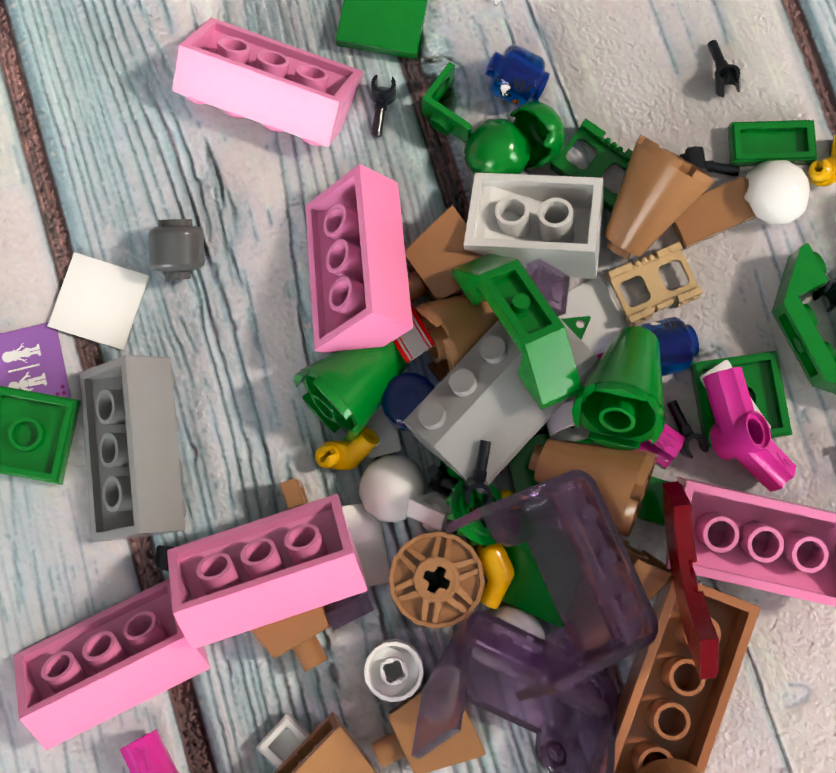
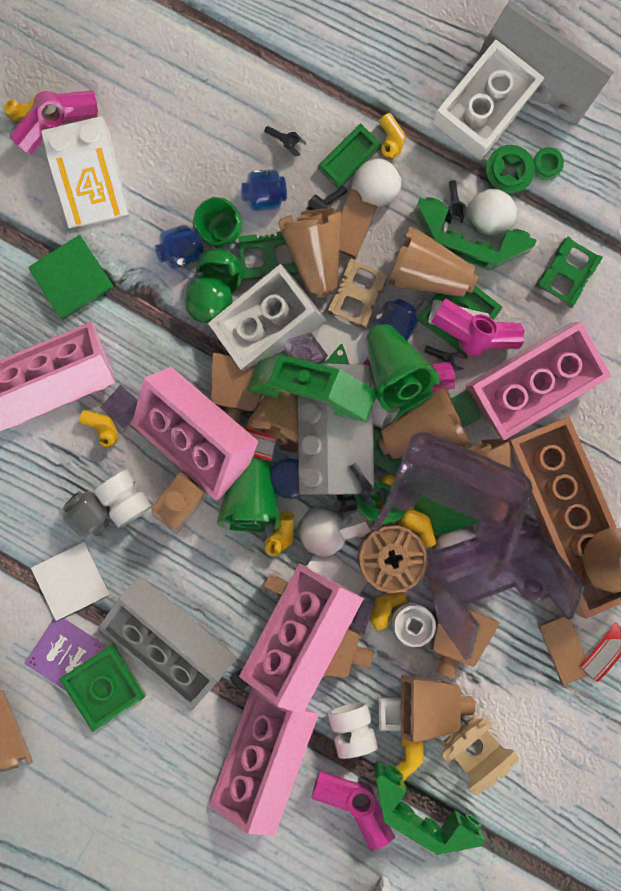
camera: 45 degrees left, 5 degrees up
(226, 266) = (122, 498): none -> white wheel
(231, 714) = (352, 728): none -> white wheel
(276, 320) = (178, 502): none -> medium nougat torso
(277, 181) = (104, 426): none -> yellow arm
(311, 177) = (120, 406): none -> clear purple plate
(379, 623) = (383, 608): none -> yellow arm
(382, 99) = (117, 328): black hand -> none
(439, 116) = (160, 309): green bracket -> none
(578, 85) = (217, 222): none -> green hair
(654, 97) = (264, 190): none -> clear blue head
(691, 603) = (533, 448): dark red tile -> none
(754, 322) = (431, 267): none -> medium nougat cone

